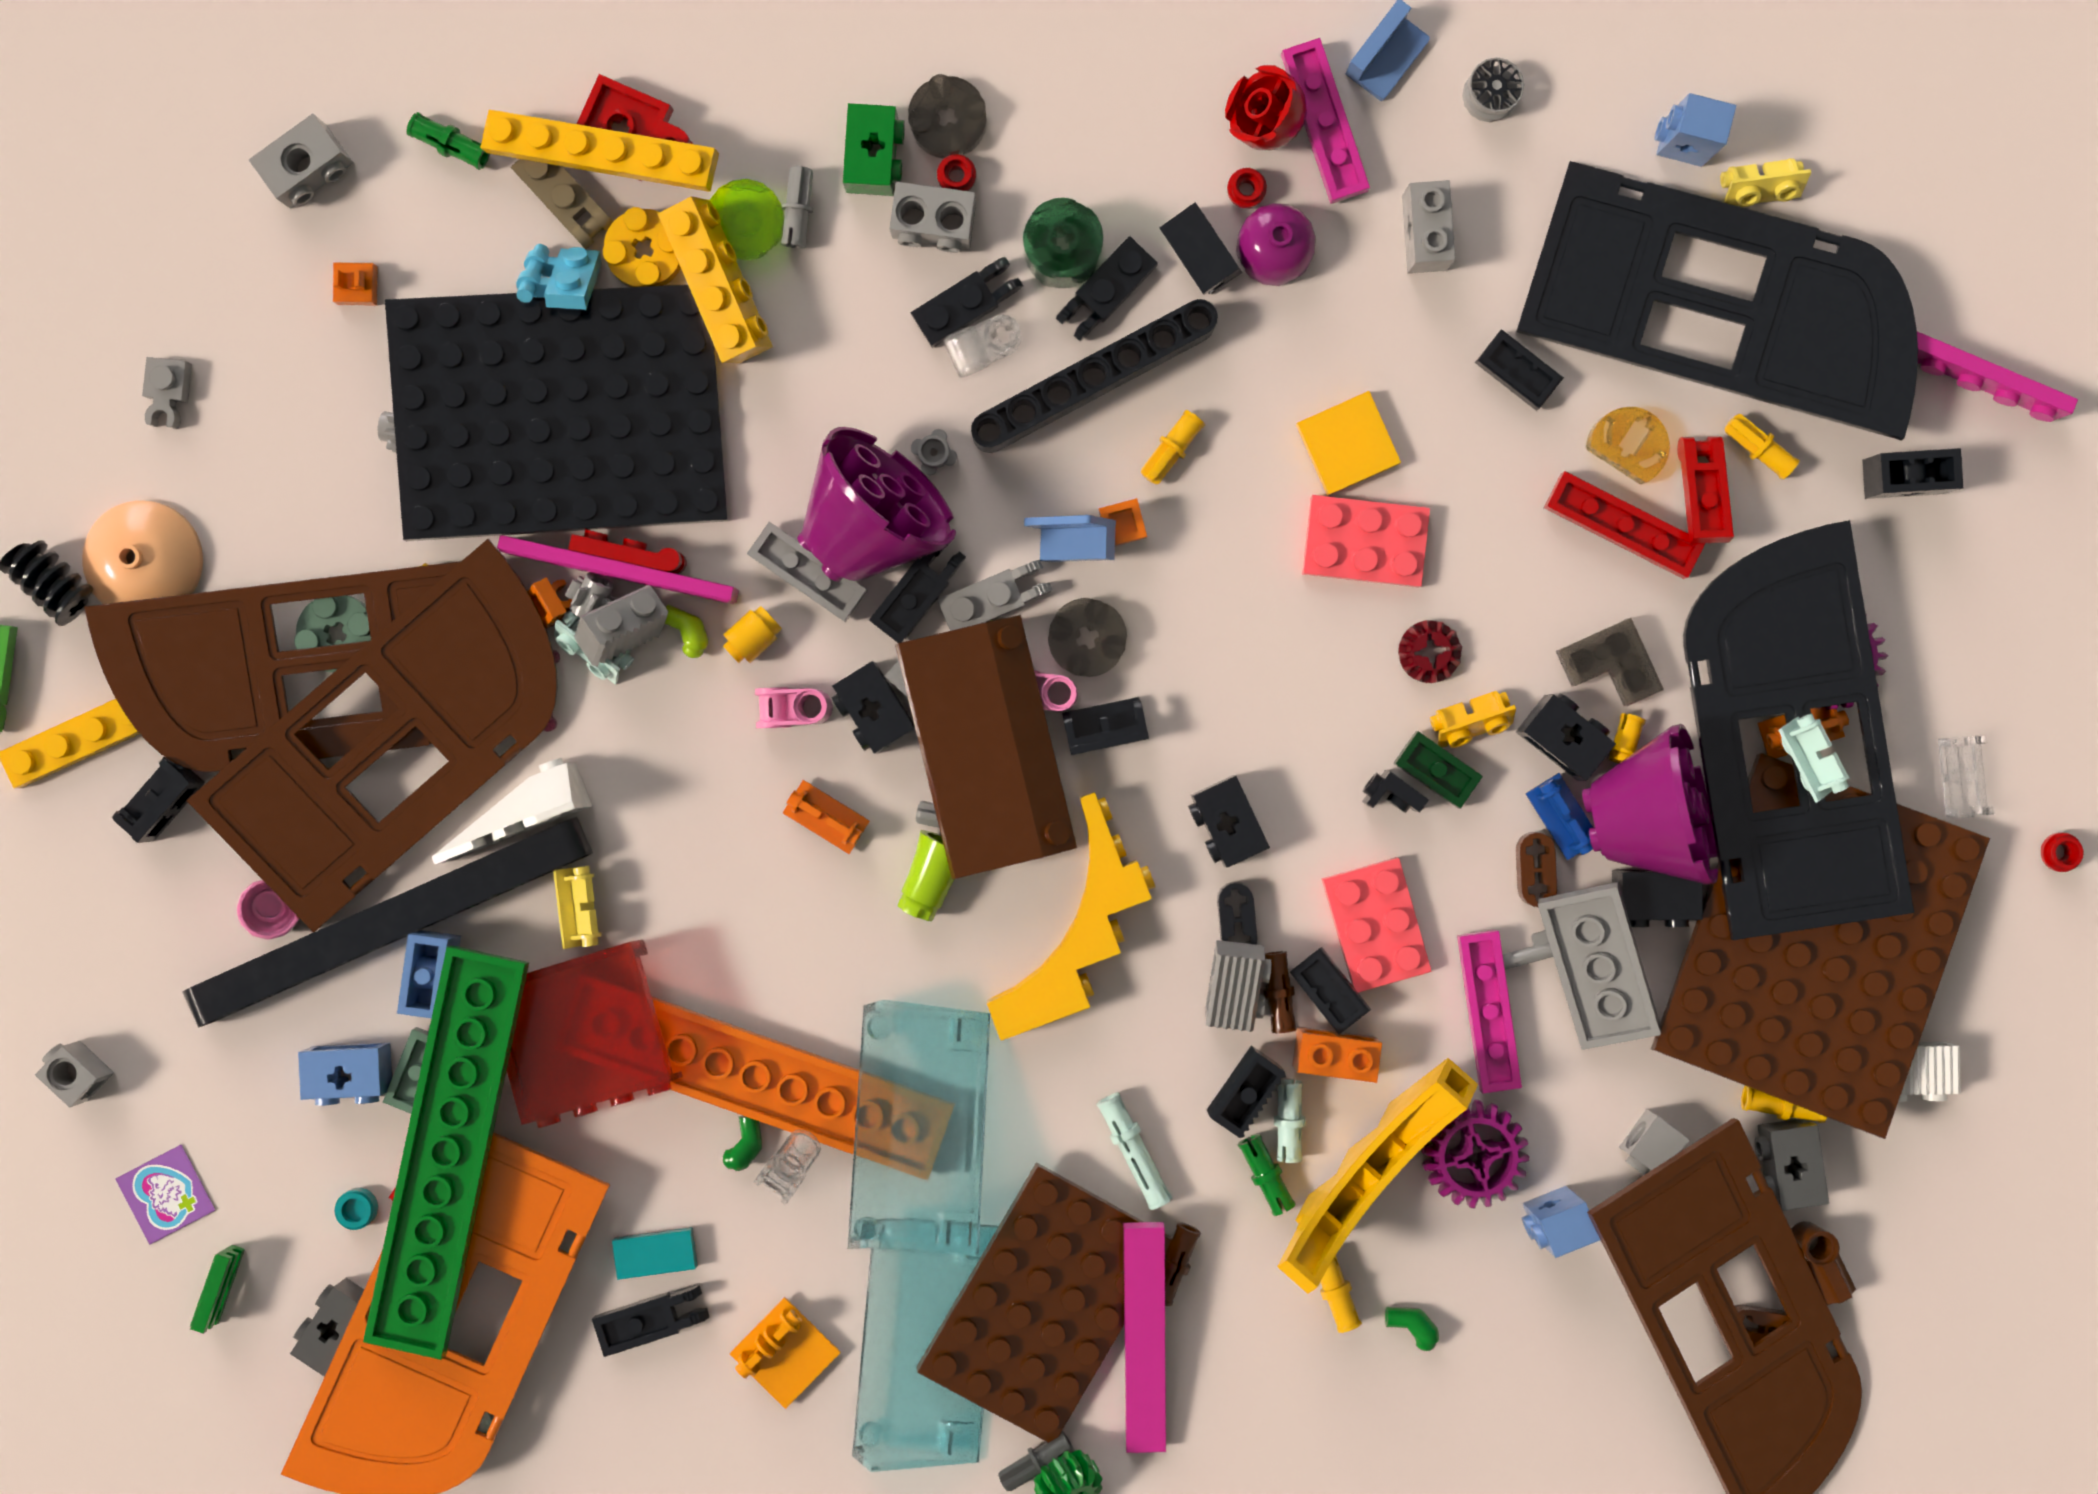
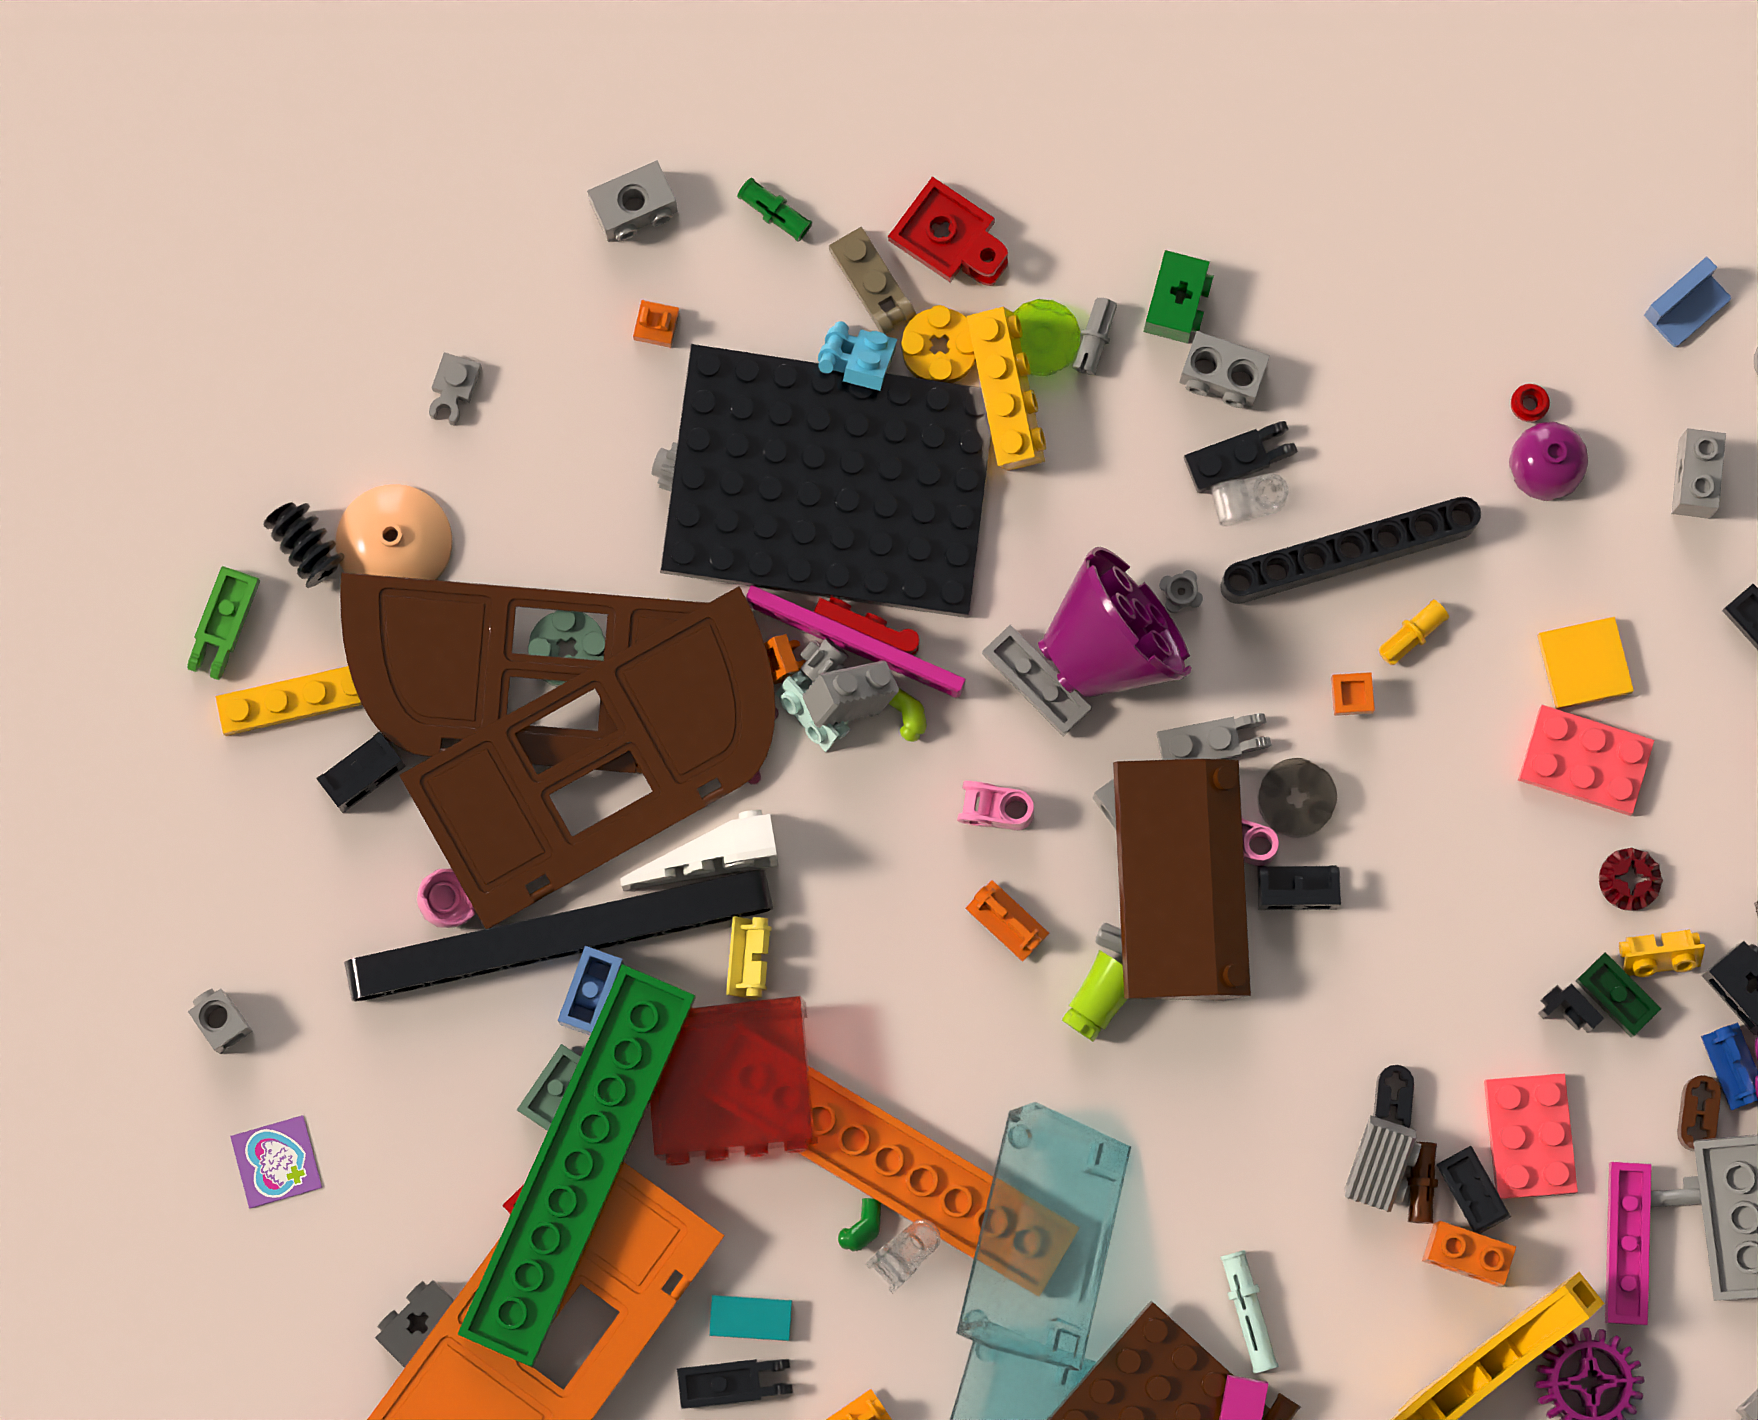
camera: 10 degrees right, 10 degrees down
(217, 1288) = (311, 1262): green tile -> none
(322, 1078) = (467, 1059): medium blue brick -> none
(356, 1208) = (463, 1213): teal tile -> none
(600, 150) = (921, 247): yellow plate -> none
(751, 635) = (970, 730): yellow brick -> none
(893, 719) = (1077, 800): black brick -> none
(914, 596) = (1136, 723): black hinge -> none
(941, 94) = (1258, 301): clear smoke plate -> none
(952, 163) = (1254, 324): red plate -> none
(1056, 986) = (1274, 1044): yellow arch -> none
(1075, 538) = (1303, 697): medium blue panel -> none
(1078, 227) = (1359, 404): clear green brick -> none
(1109, 286) = (1380, 468): black hinge -> none
(1200, 249) = (1475, 451): black hinge -> none
(1246, 1092) = (1373, 1270): black brick -> none
(1247, 834) = (1409, 982): black brick -> none
(1266, 109) = (1562, 333): red cylinder -> none
(1266, 1174) = (1377, 1362): green pin -> none
(1289, 1121) = (1409, 1313): light aqua pin -> none
(1326, 122) = (1616, 355): dark pink plate -> none

